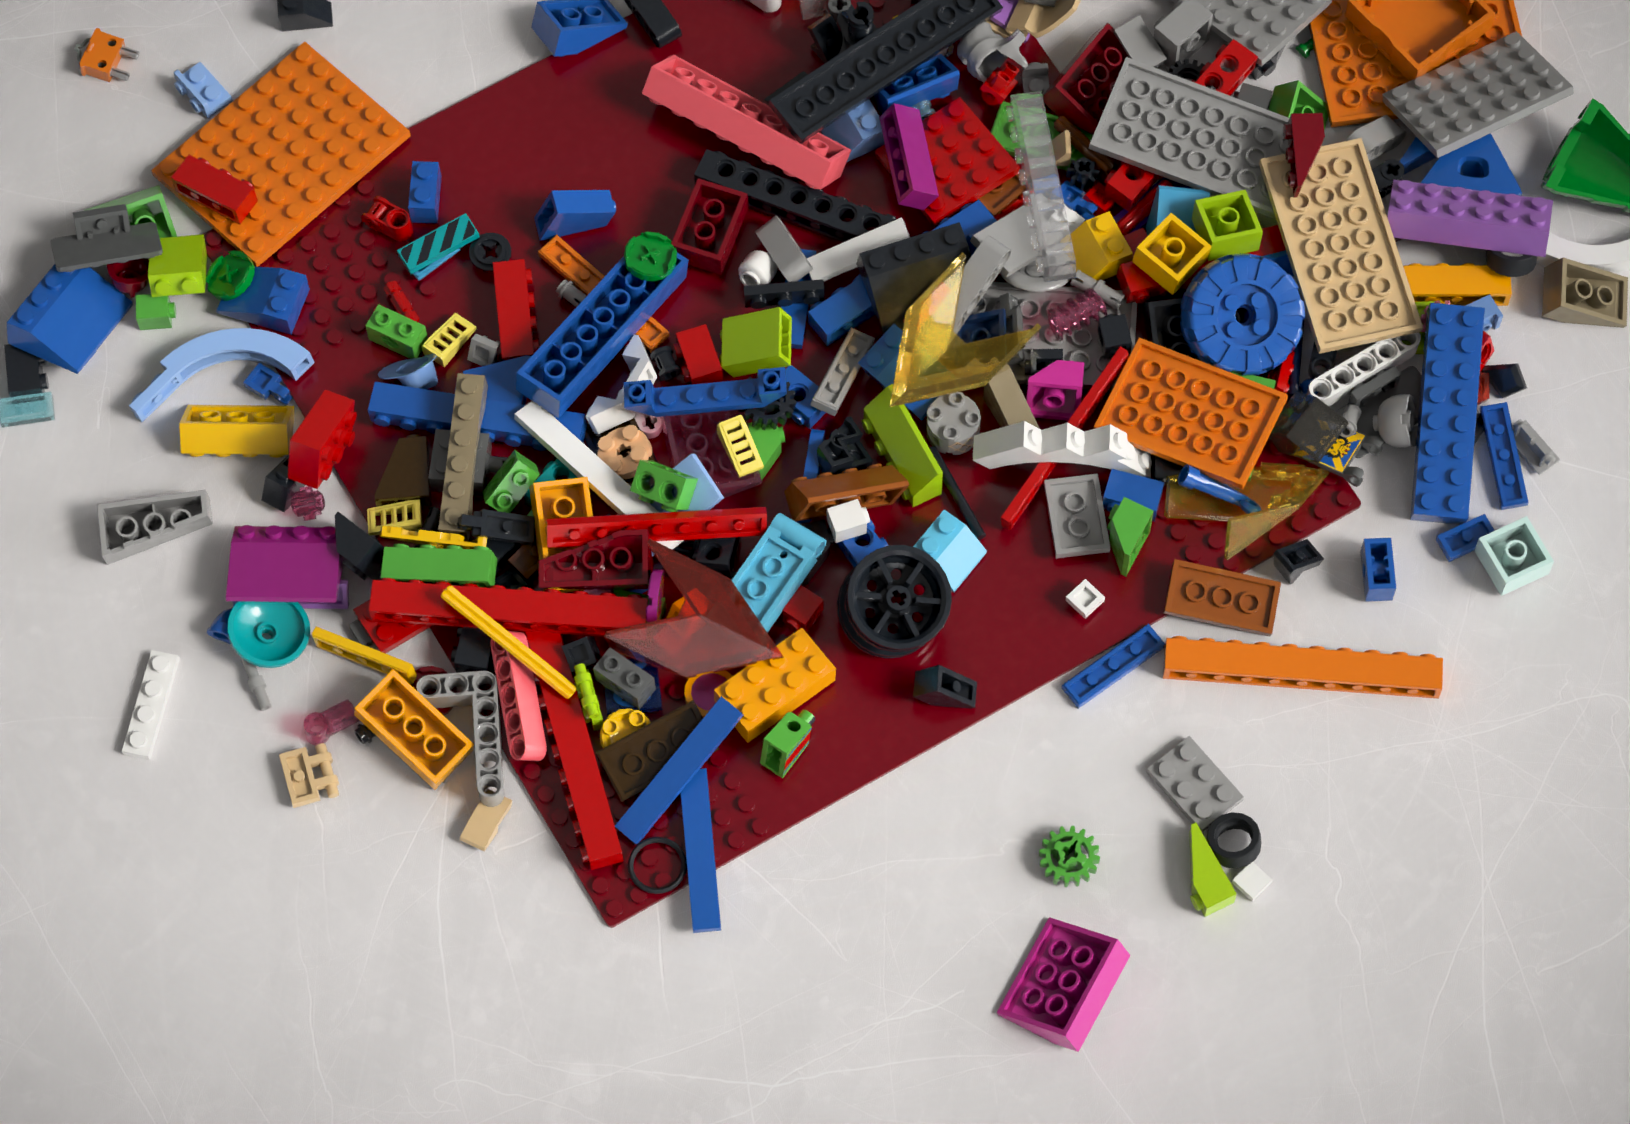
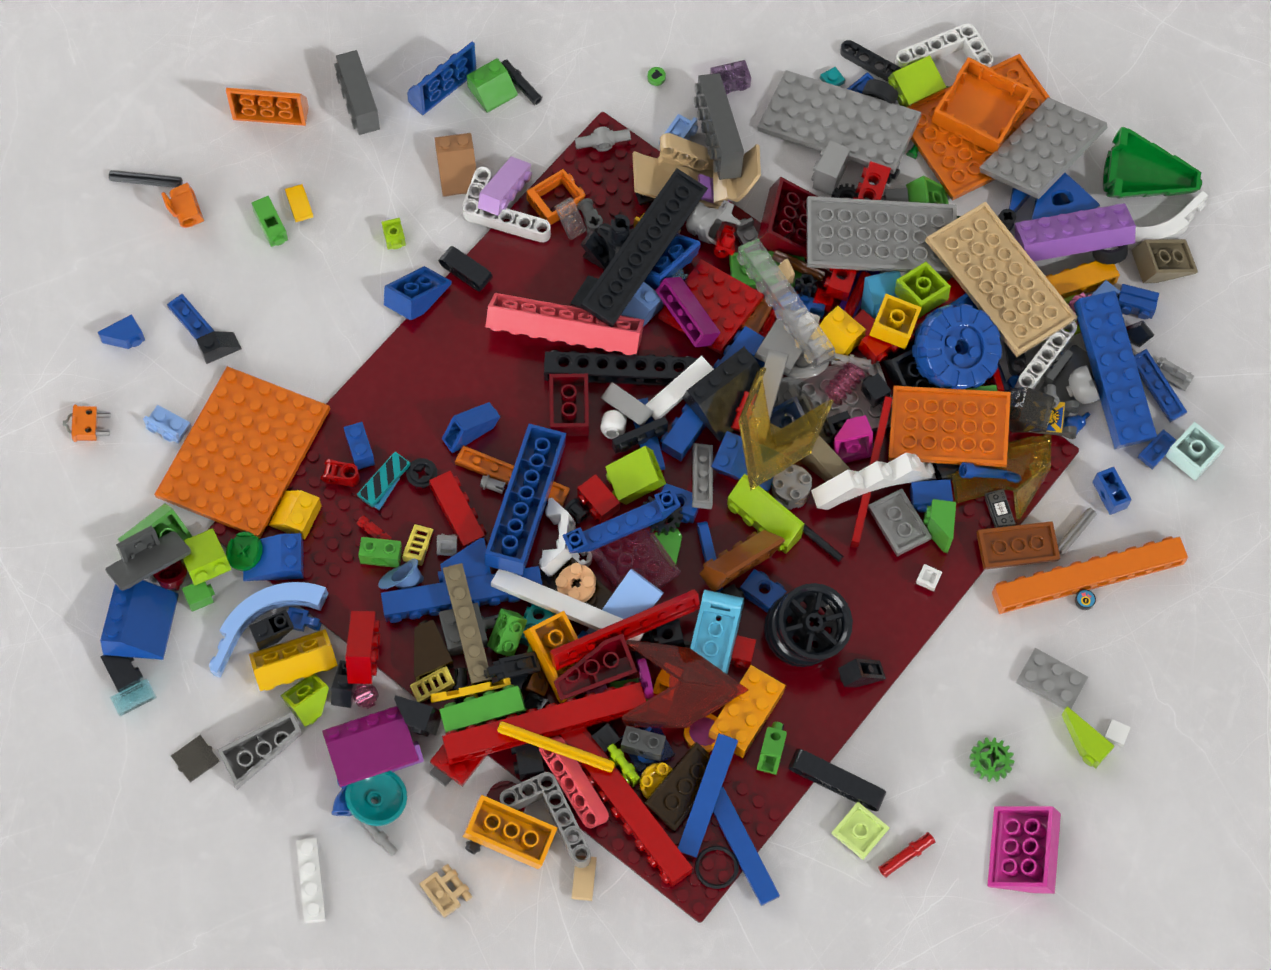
camera: 25 degrees left, 0 degrees up
(71, 509) = (195, 758): none -> clear smoke piece
(214, 188) = (209, 492): red brick -> none
(224, 383) = (271, 629): none -> black slope
(233, 483) = (307, 699): none -> lime slope
(314, 250) = (296, 512): none -> yellow slope
(332, 720) = (447, 846): clear pink piece -> none
(362, 654) = (449, 790): yellow tile -> none
(650, 256) = (540, 439): green tile -> none
(664, 482) = (618, 593): bright green brick -> none
(729, 426) = (656, 542): light yellow slope -> none
(843, 450) = (724, 531): black slope -> none
(847, 520) = (751, 579): white brick -> none
(856, 811) = (837, 779): none -> black beam
(860, 885) = (860, 830): none -> yellowish green plate
(908, 936) = (914, 849): none -> red pin
(952, 547) = (825, 570): slope -> none
(1113, 666) = (964, 617): blue tile -> none
(1139, 43) = (806, 183): light grey panel -> none
(1215, 543) = (999, 509): none -> tile
(1235, 821) = (1096, 694): black tyre -> none
(1284, 698) = (1085, 599): none -> tile
(1295, 559) = (1055, 503): black slope -> none
(1305, 139) = (953, 218): dark red slope -> none
(1310, 606) = (1076, 530): none -> light grey axle
(1372, 467) = (1077, 421): none -> blue piece
(1379, 136) = (990, 194): light grey beam -> none
(1522, 337) = (1137, 301): none -> blue brick

